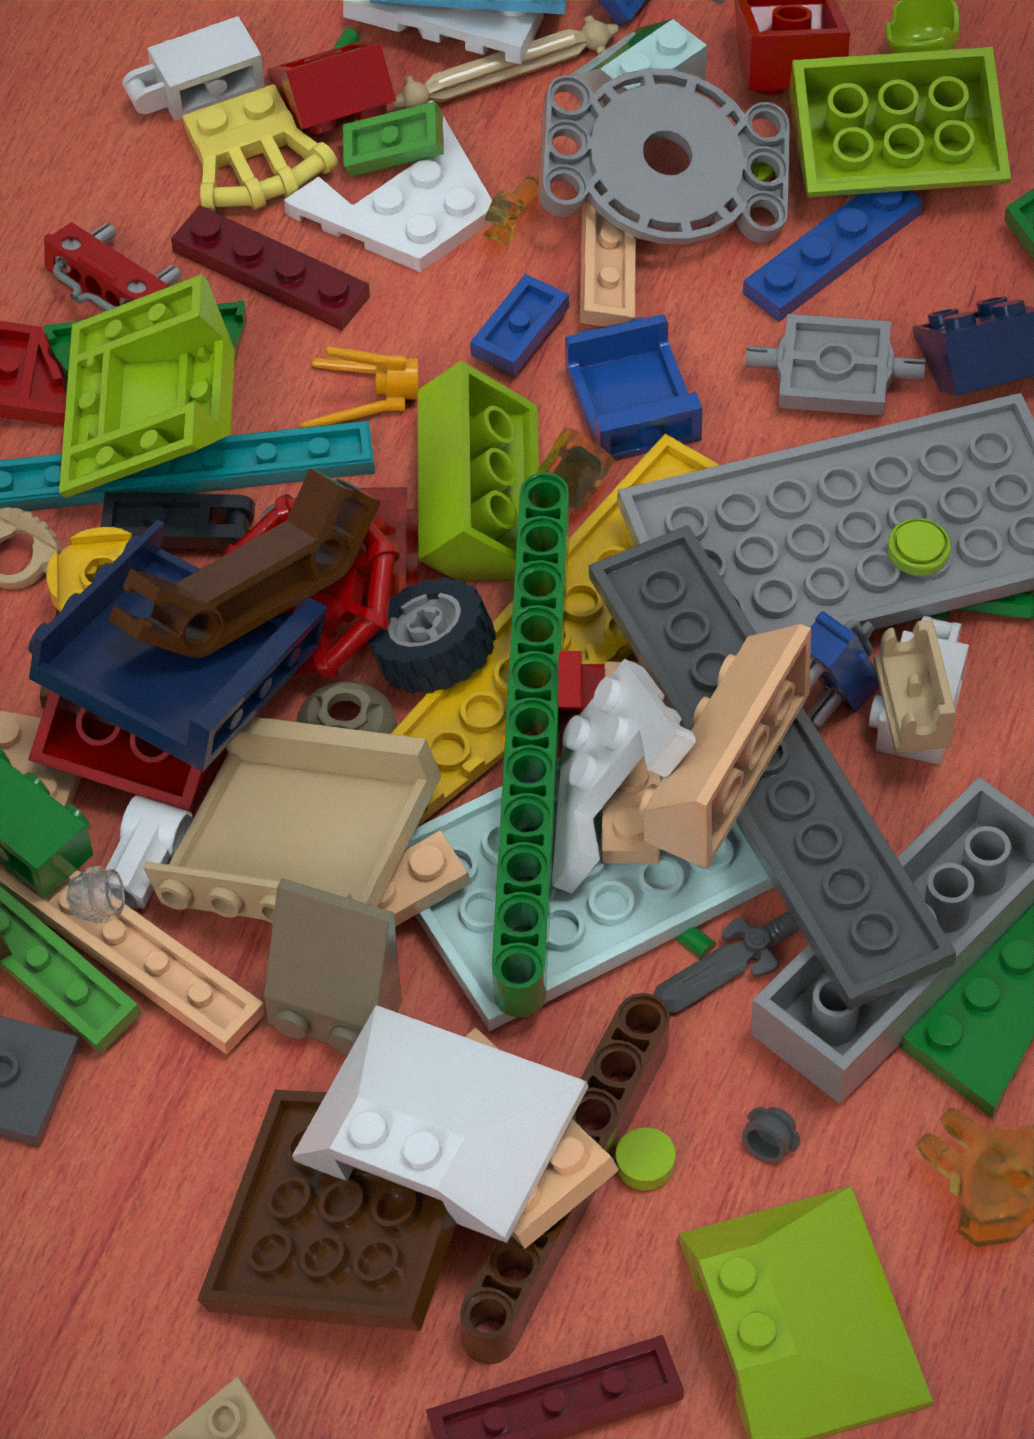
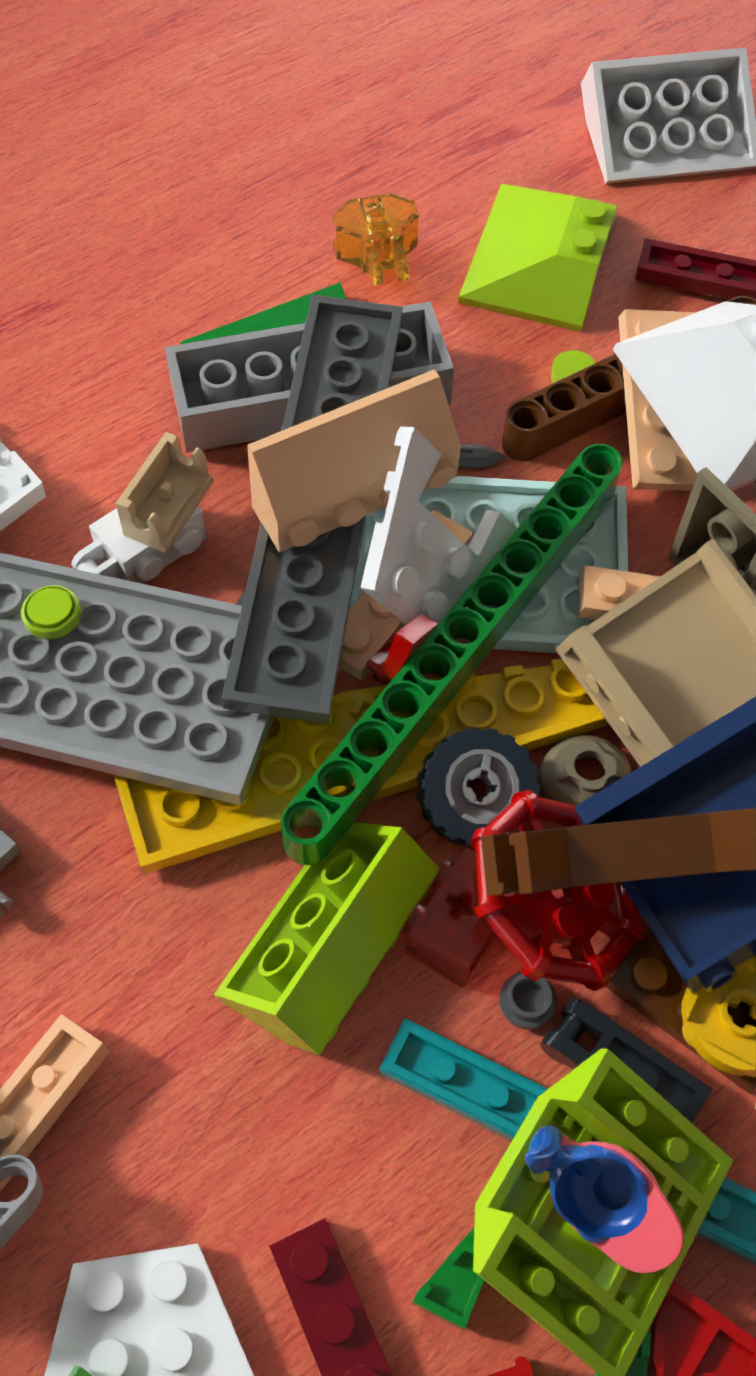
camera: 150 degrees left, 5 degrees up
(151, 388) = (609, 1199): none -> blue hair
(393, 376) = (328, 1098): light orange plant -> none
(506, 209) = (73, 1235): clear yellow bar -> none
(519, 324) = (164, 1087): blue plate -> none
(580, 465) = (246, 882): rock -> none
(631, 387) = (127, 941): blue panel -> none
(770, 1134) = (486, 338): dark grey plate -> none
(840, 665) = (200, 543): blue piece -> none

